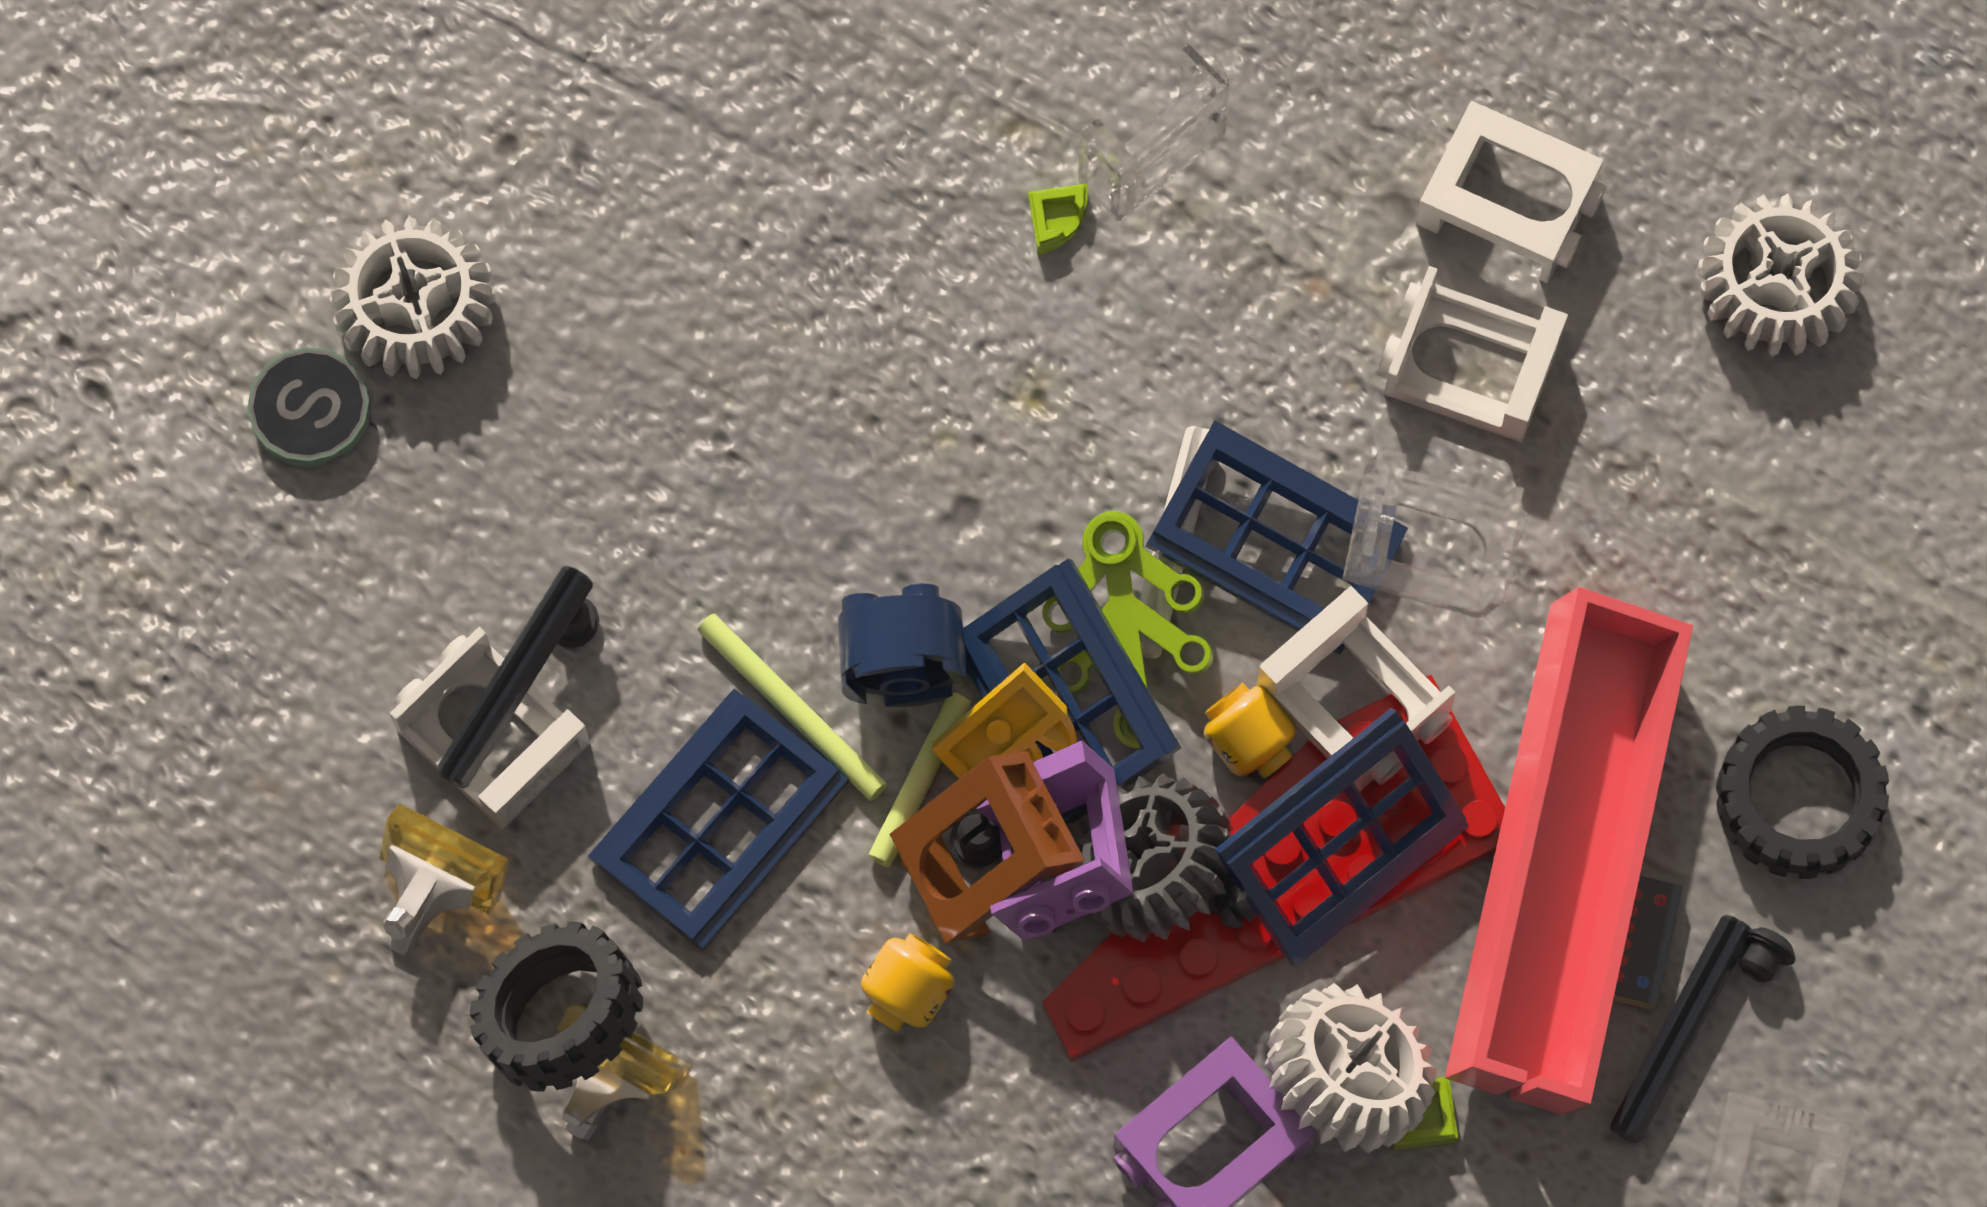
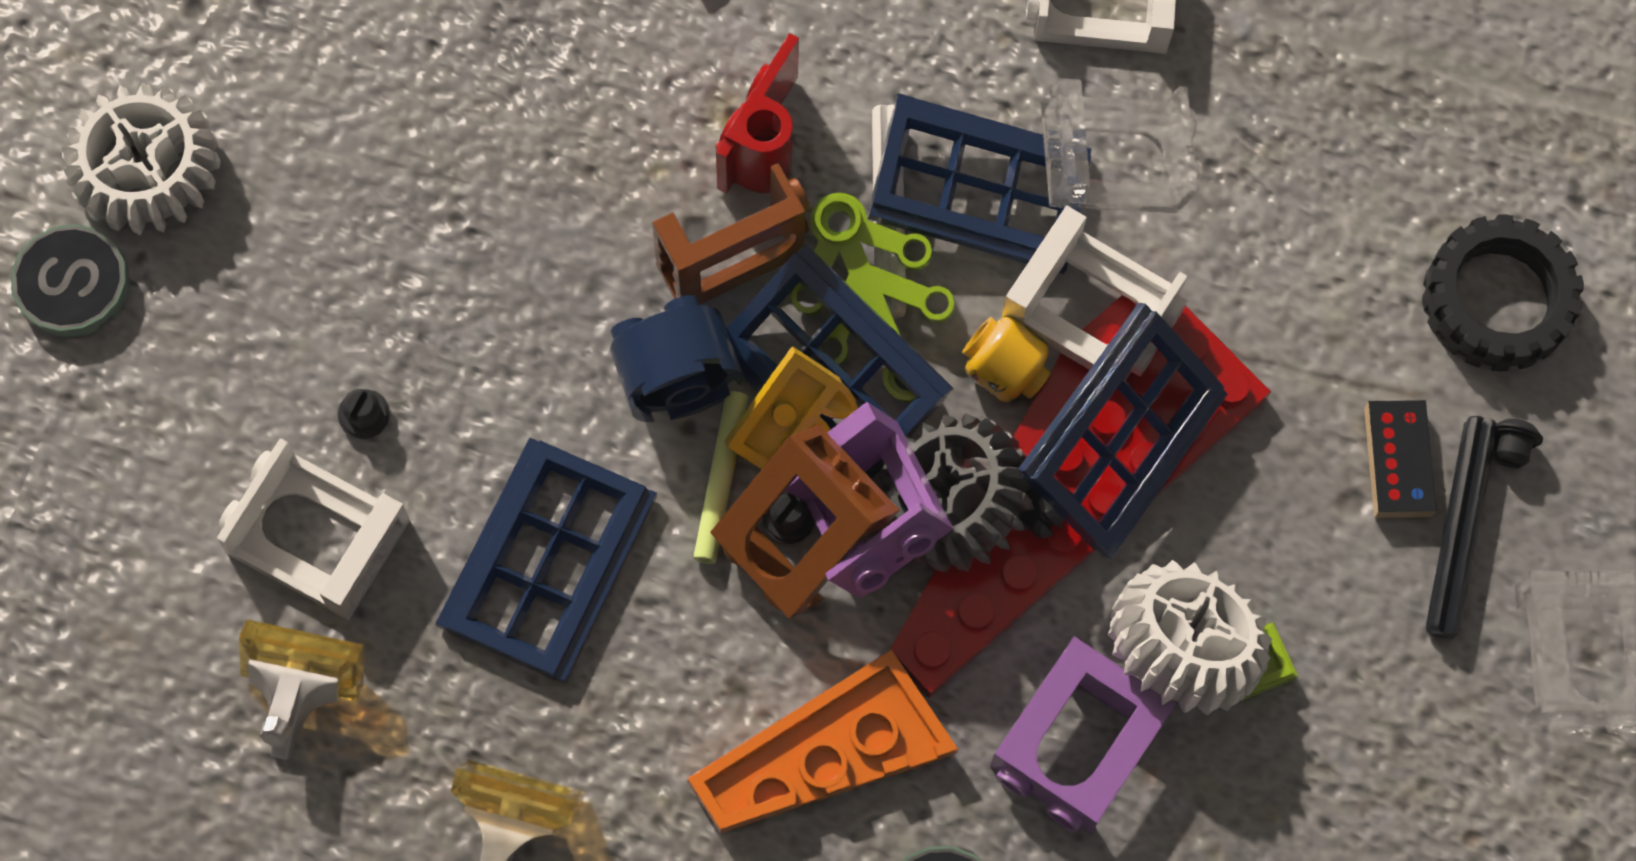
camera: 20 degrees left, 0 degrees up
(514, 676) = (325, 476): black axle -> none
(586, 1042) = (477, 804): black tyre -> none
(792, 707) = (587, 441): yellowish green bar -> none
(907, 982) = (763, 664): yellow head -> none
(940, 547) = (682, 262): none -> dark orange panel
(954, 1083) = (832, 744): none -> orange wing
(1050, 432) = (761, 127): none -> red piece
(1569, 852) = (1325, 397): coral piece -> none

